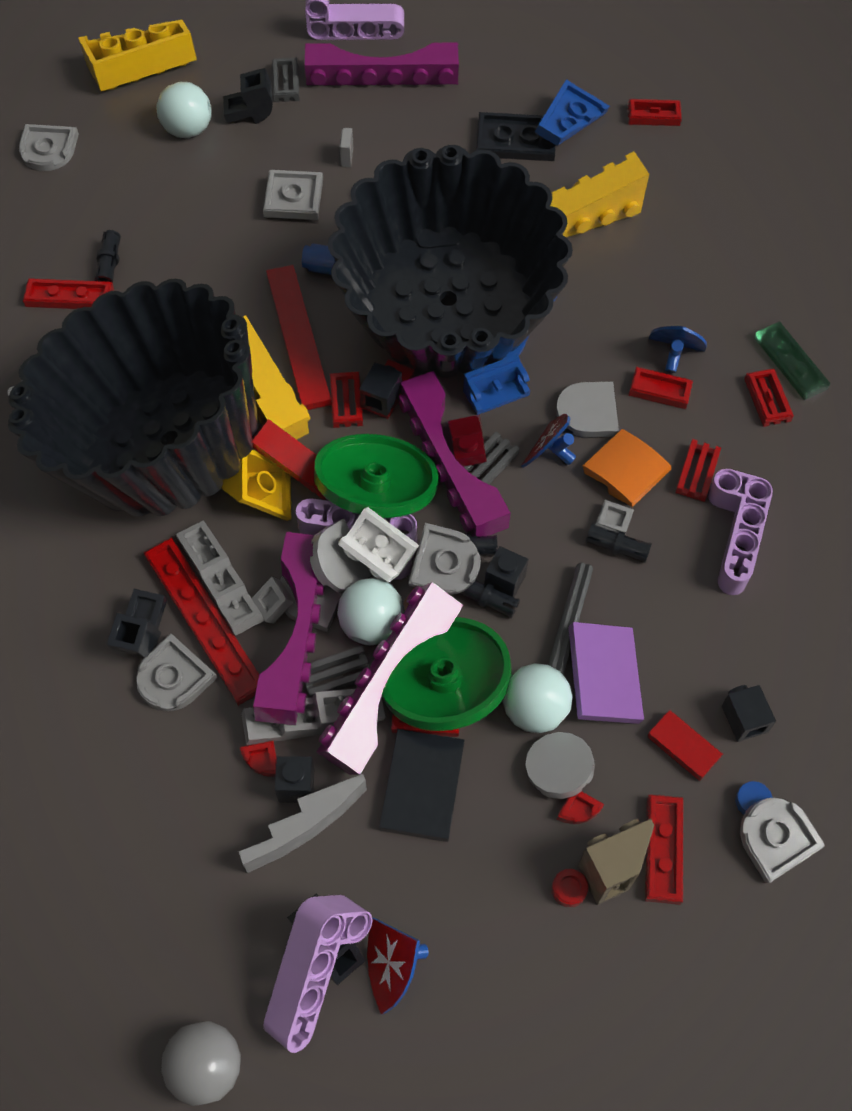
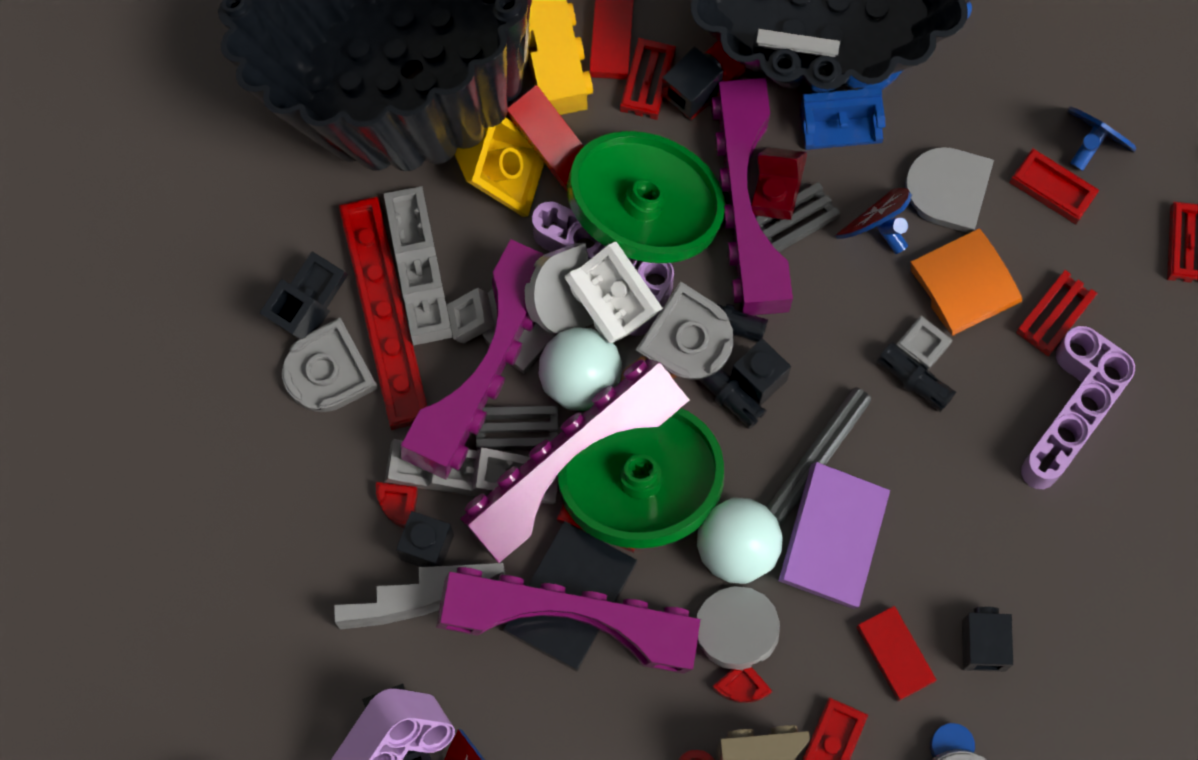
camera: 20 degrees right, 10 degrees up
(460, 327) = (798, 43): none -> light grey tile
(499, 792) = (654, 637): none -> magenta arch

